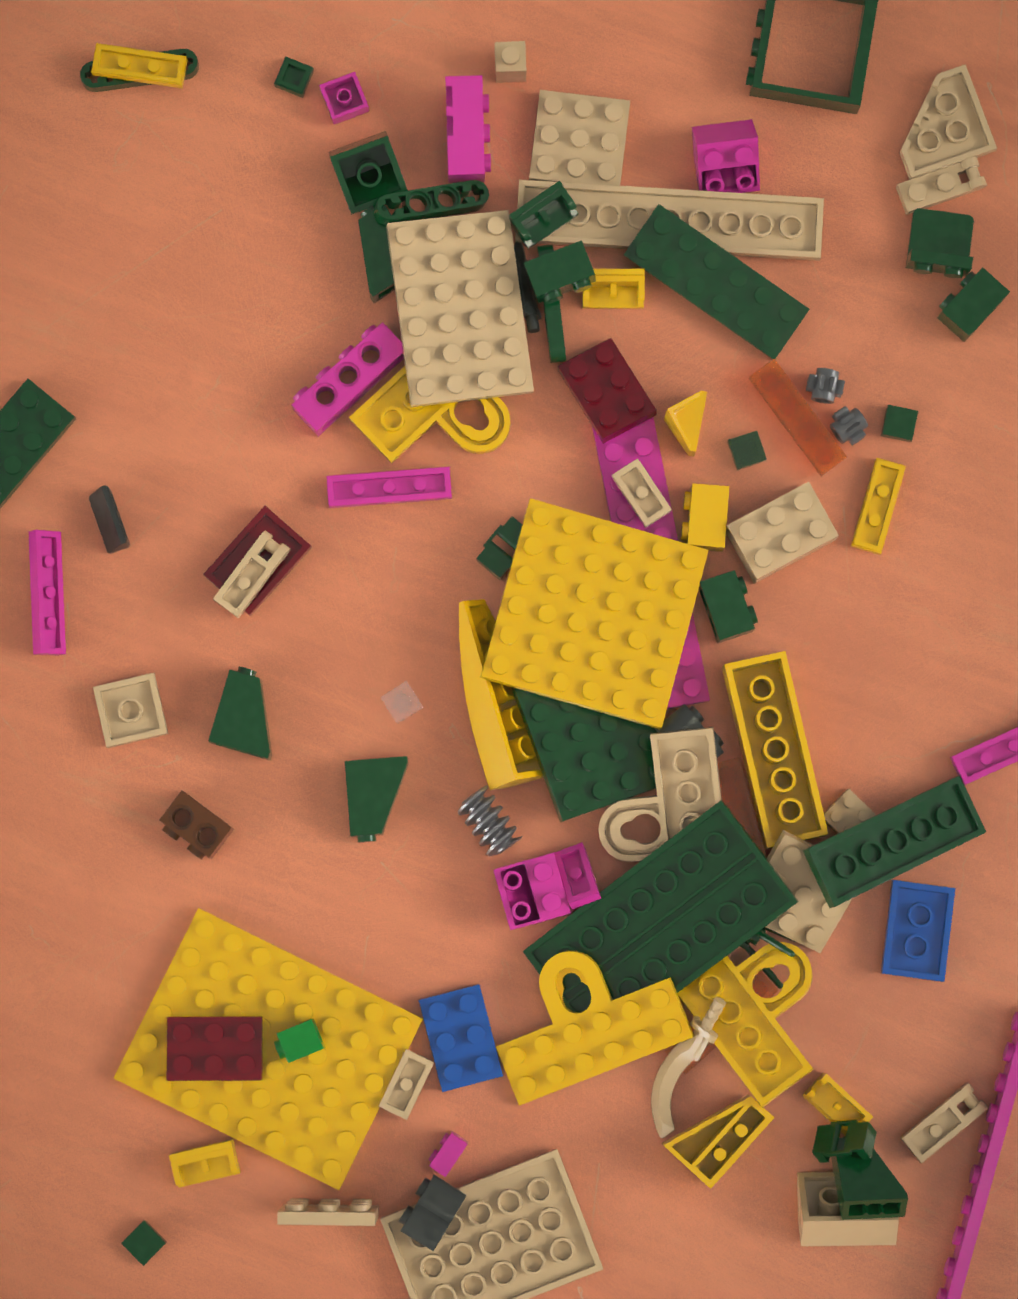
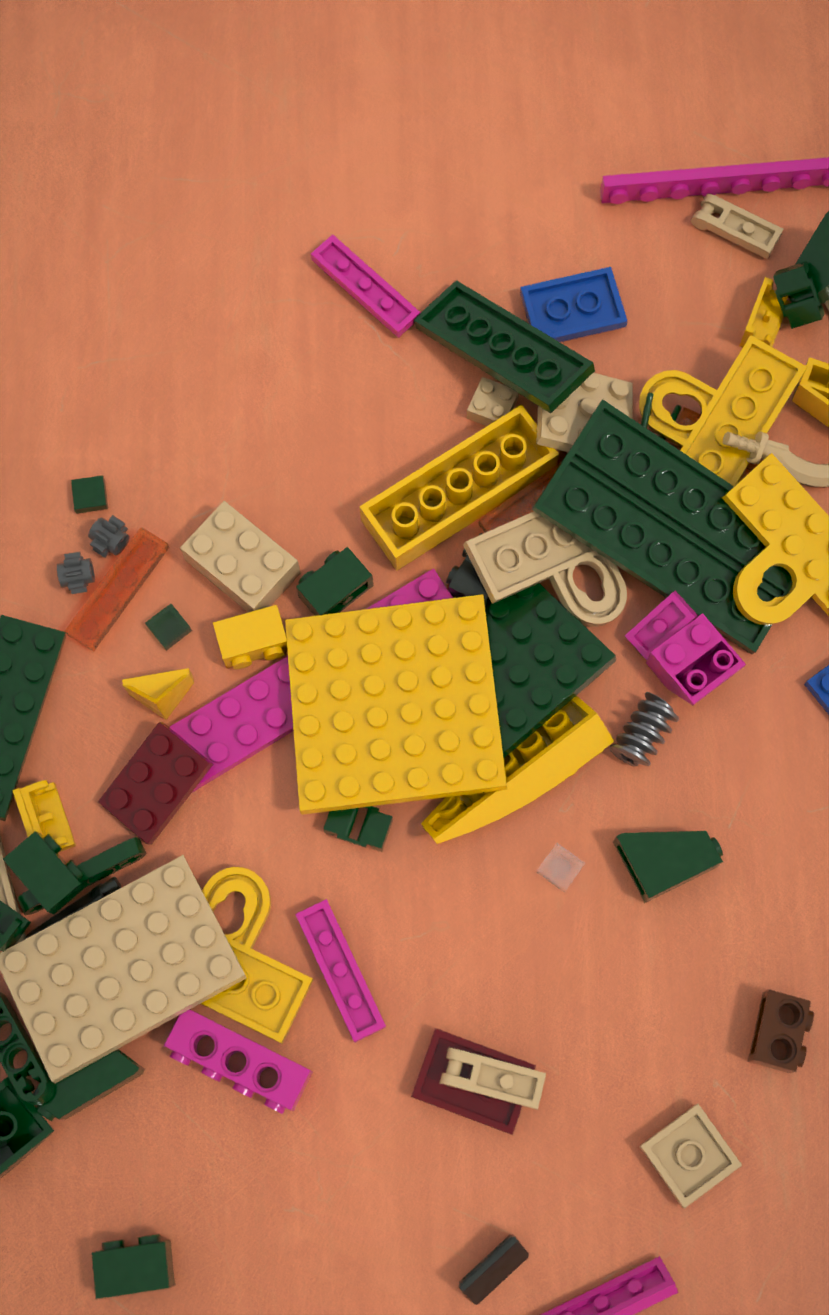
camera: 105 degrees left, 10 degrees down
(222, 242) = (133, 1268): none -> dark green brick
(242, 716) = (646, 1029): dark green slope -> none
(641, 493) = (251, 705): tan plate -> none
(878, 506) = (179, 485): yellow tile -> none

